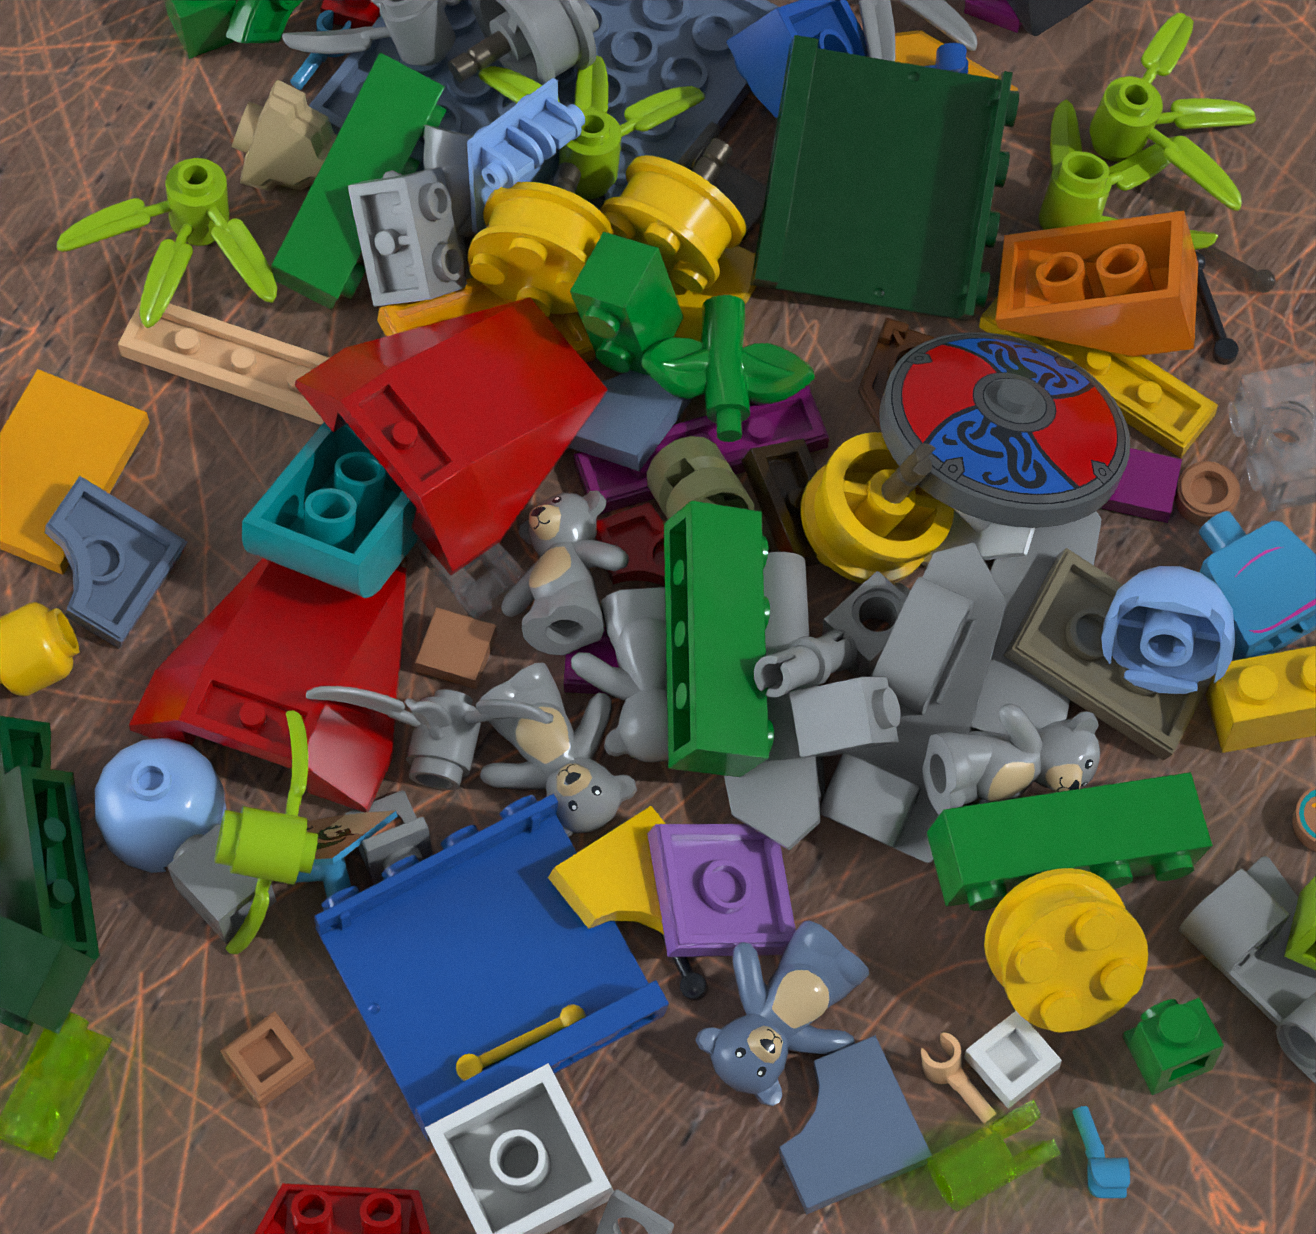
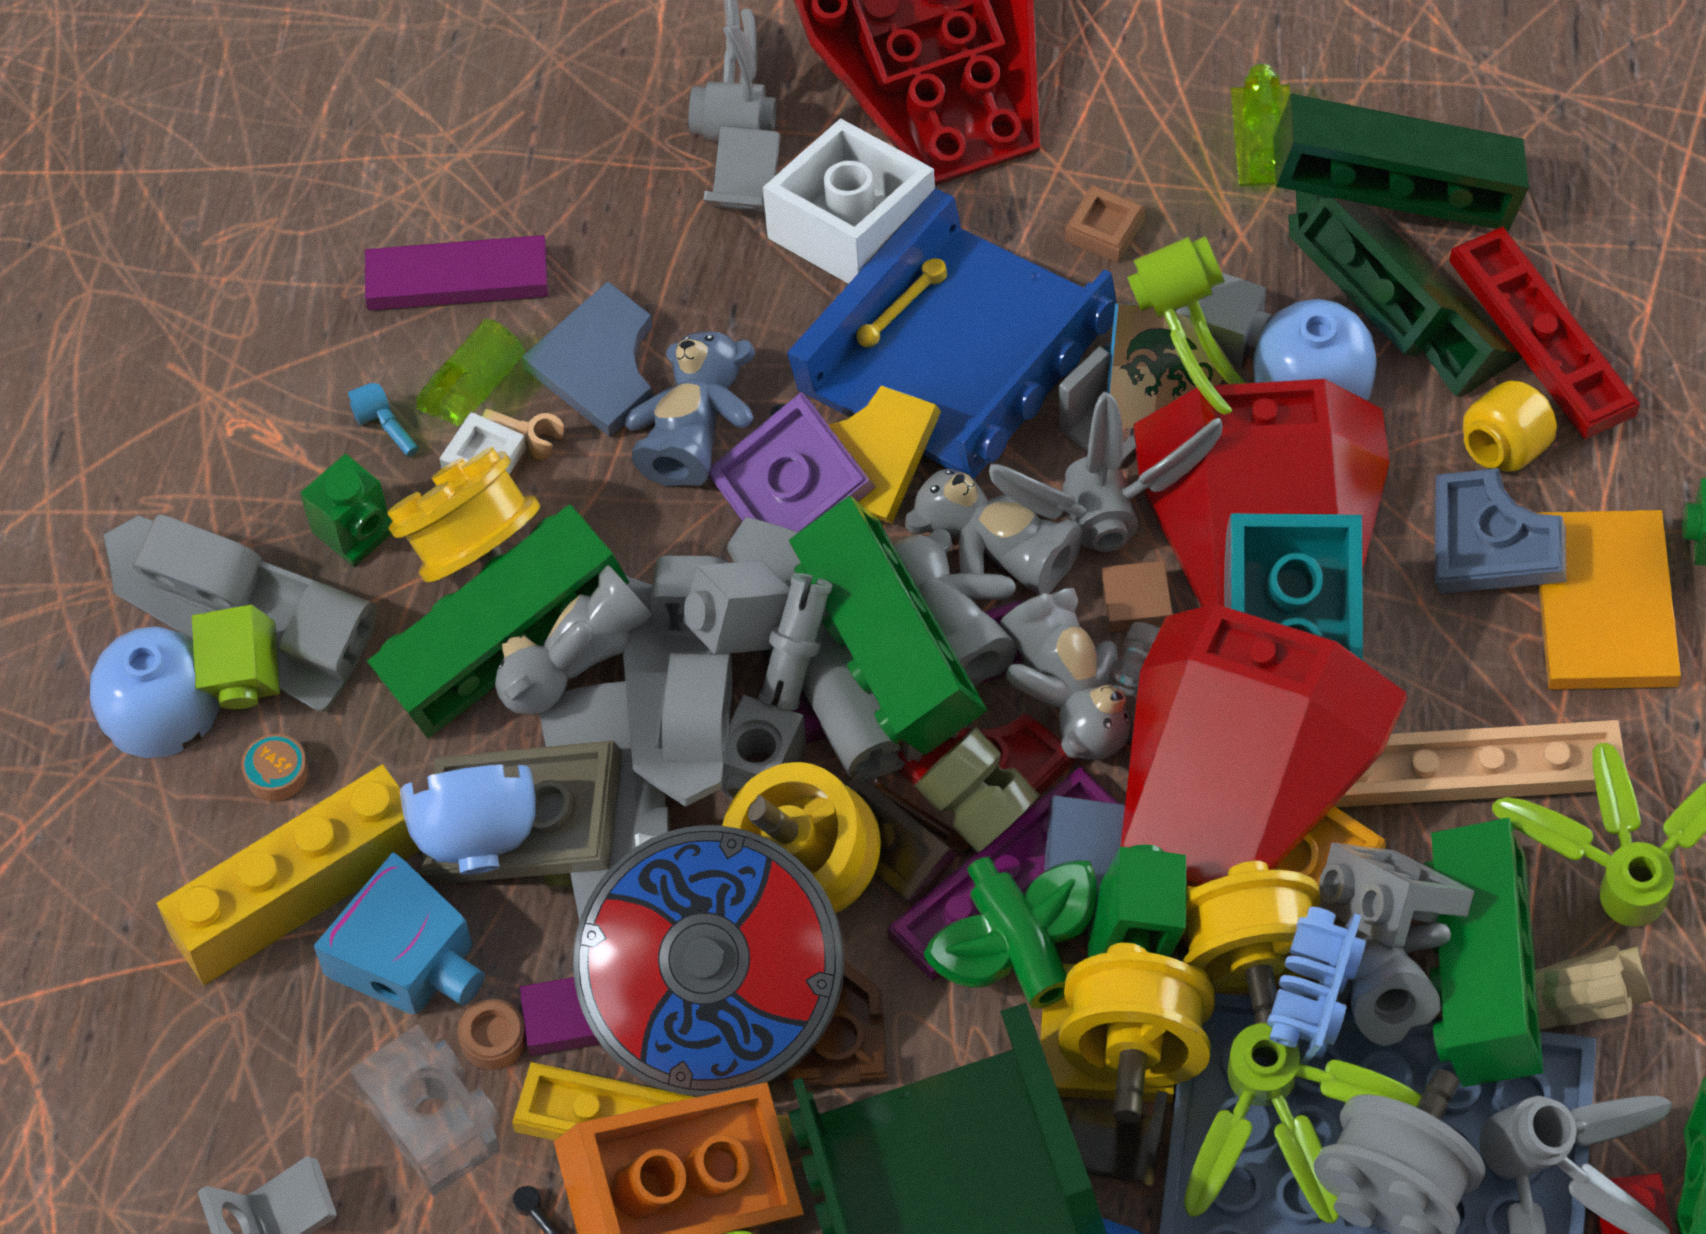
camera: 160 degrees right, 5 degrees down
(307, 69) = (1632, 1141): dark azure hand -> none

